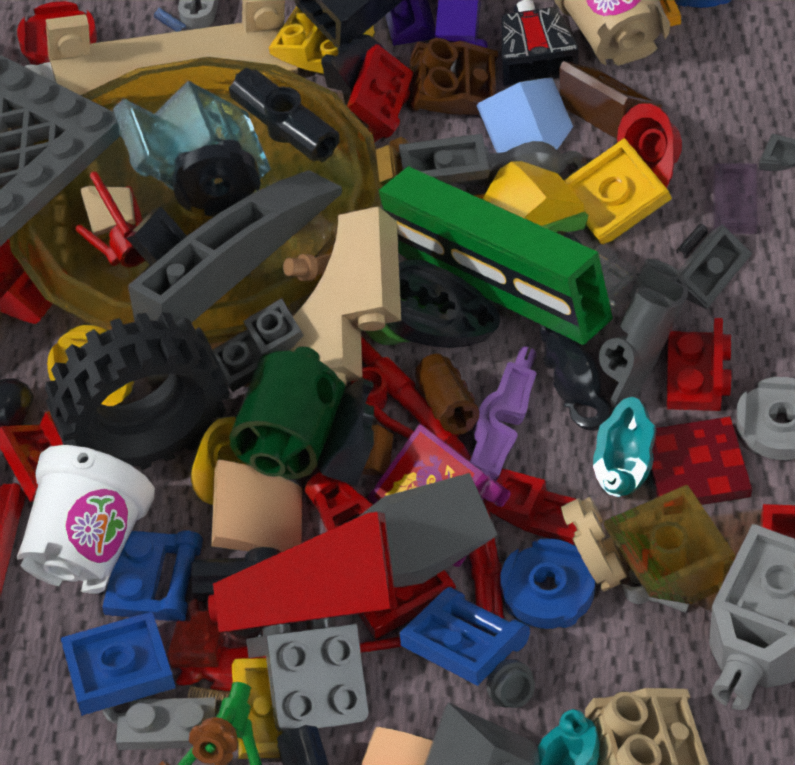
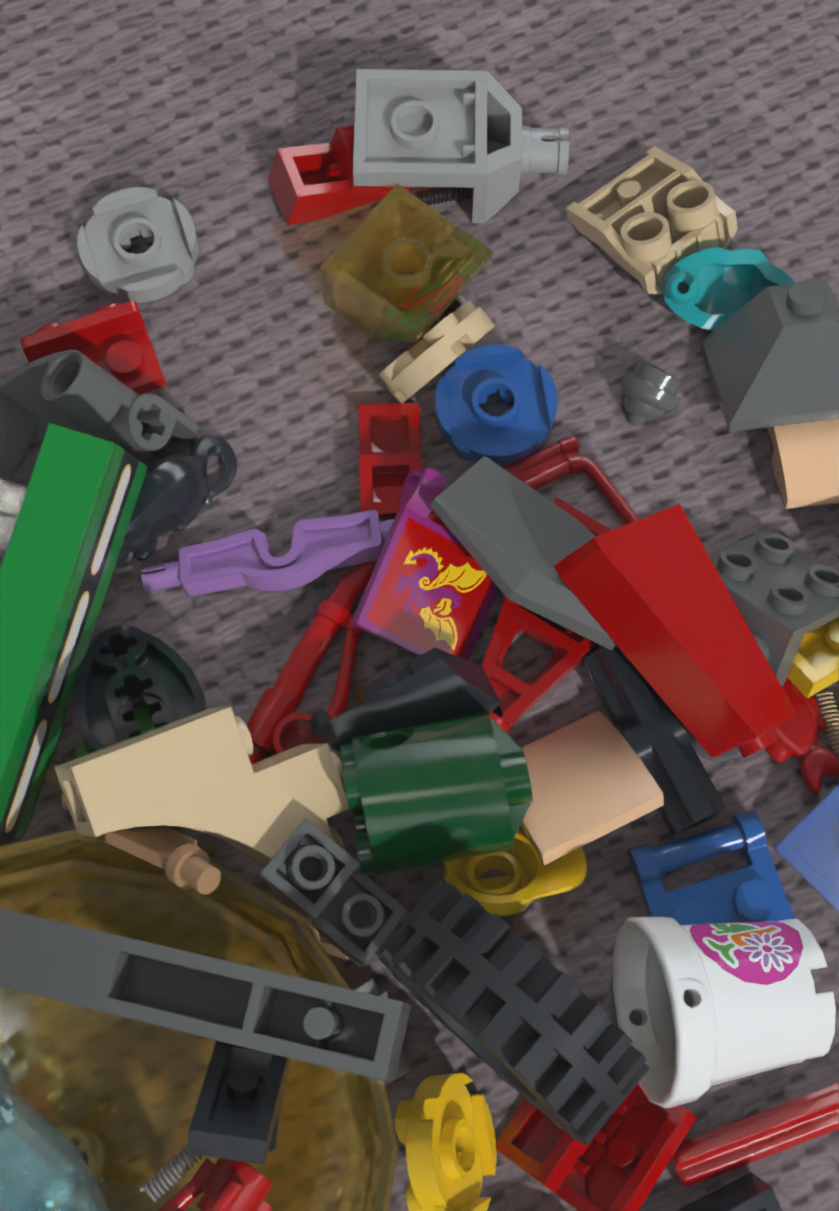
camera: 120 degrees left, 20 degrees up
(196, 641) = (783, 769): clear red plate -> none
(224, 160) = (70, 1095): black plate -> none
(447, 394) = (273, 630): reddish brown axle -> none
(458, 645) = (645, 455): blue plate -> none
(627, 445) = (261, 381): teal arm -> none
(702, 457) = (242, 318): dark red tile -> none

